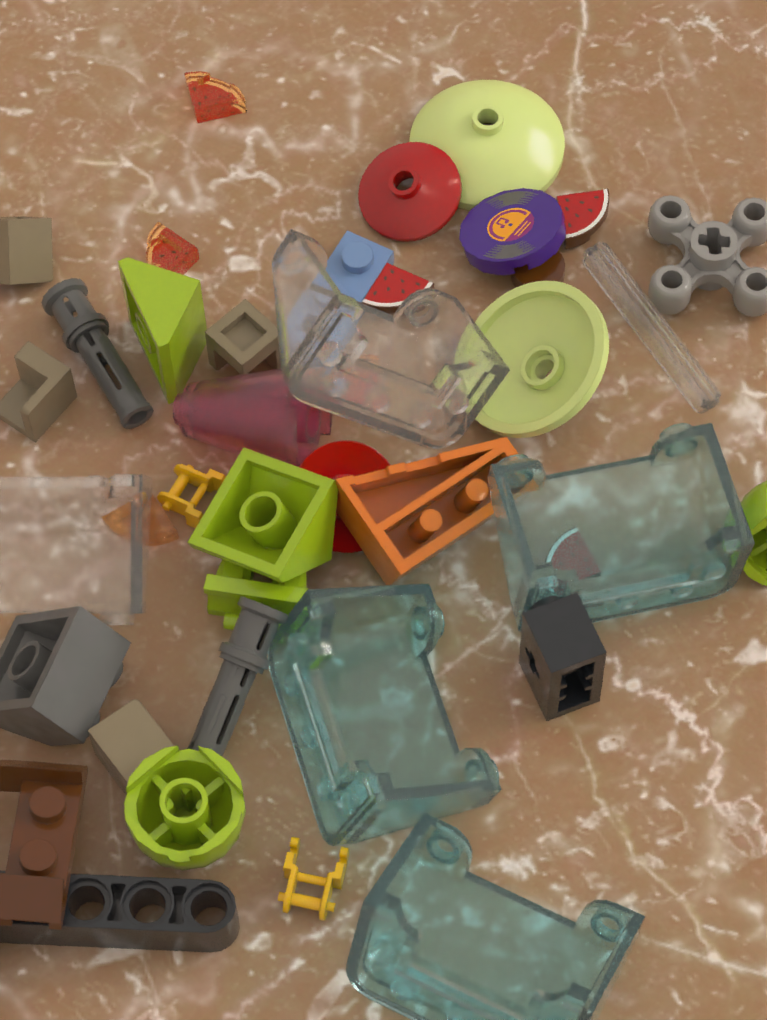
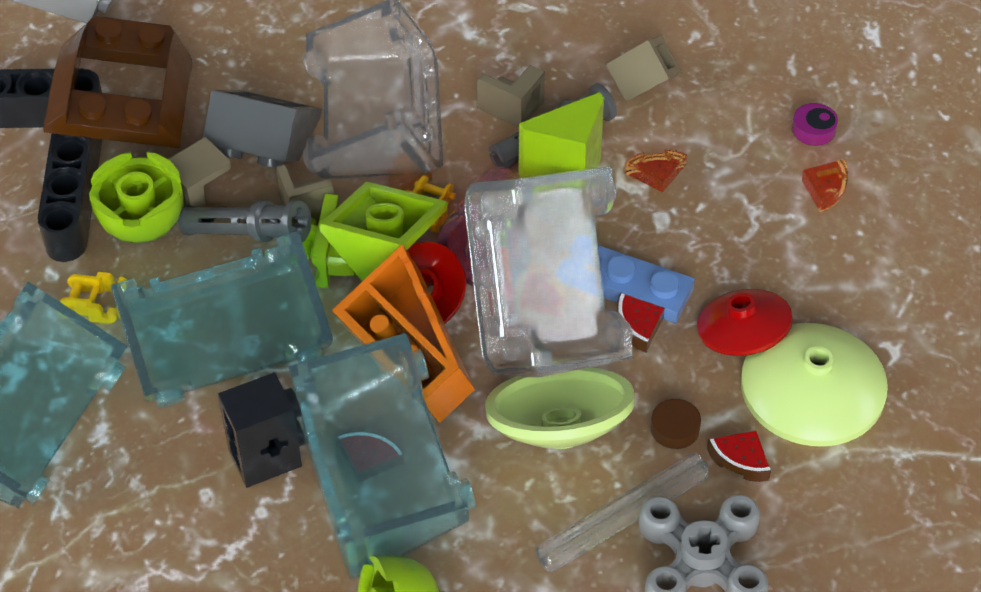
camera: 85 degrees right, 10 degrees down
(122, 96) = (814, 124): none -> magenta tile
(185, 628) = (310, 192): none -> dark tan panel
(512, 231) = (707, 394): dark purple tile -> none

